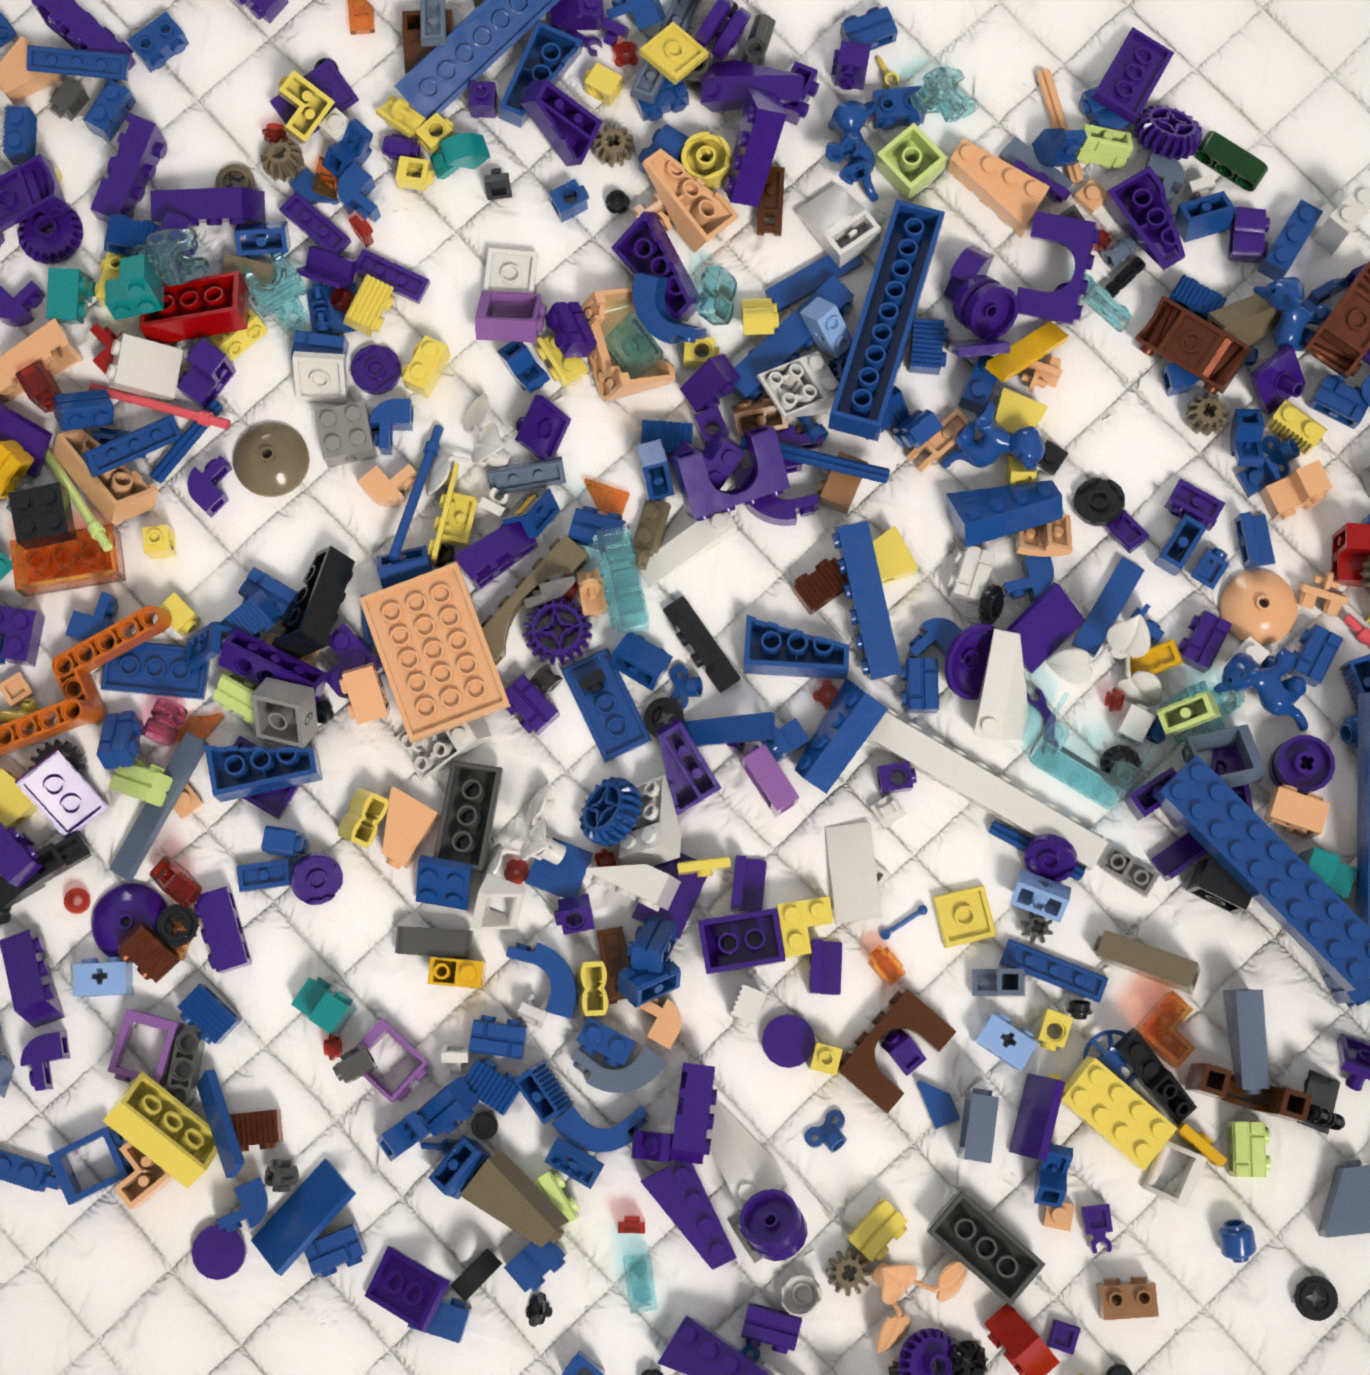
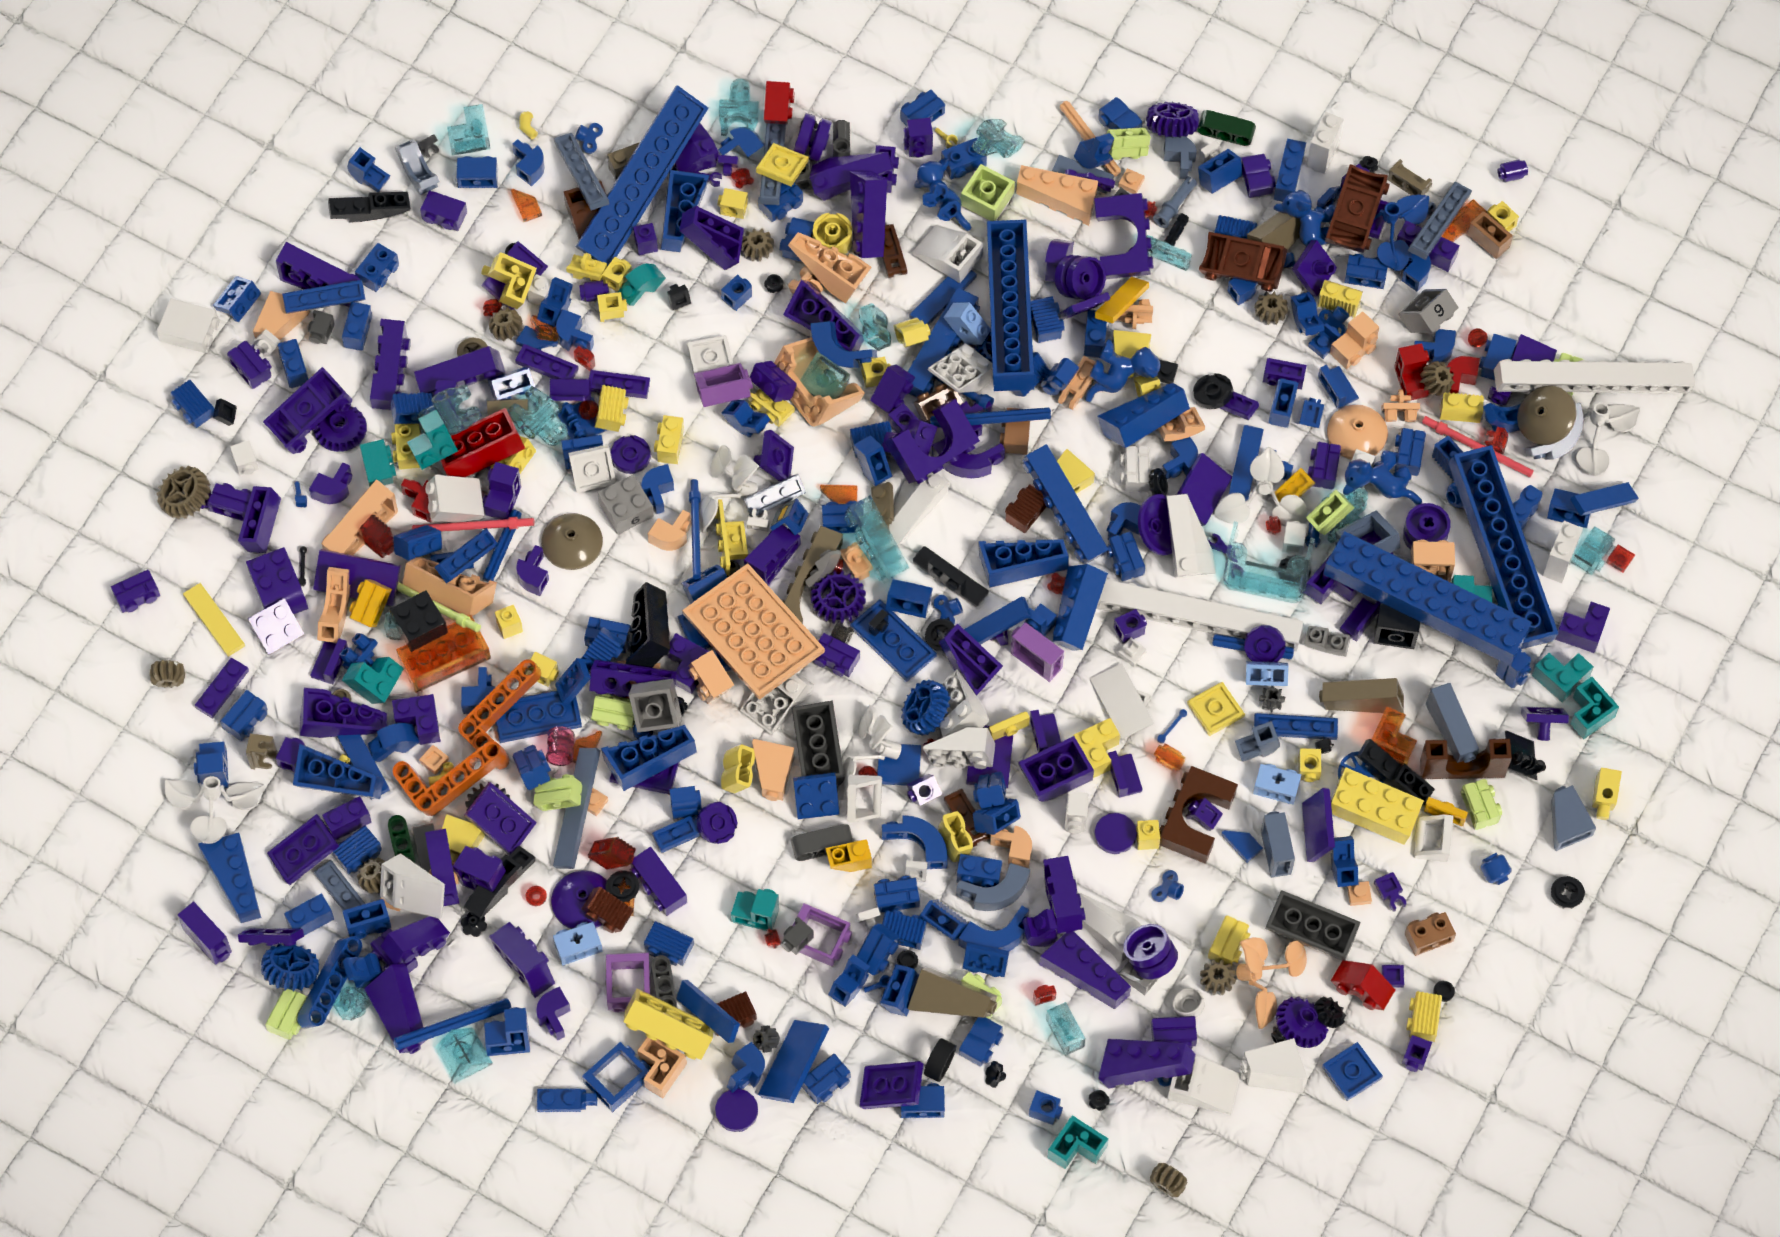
camera: 20 degrees left, 15 degrees down
(1132, 75) = (1132, 87): dark purple tile -> none
(1144, 214) = (1174, 180): dark purple wedge -> none

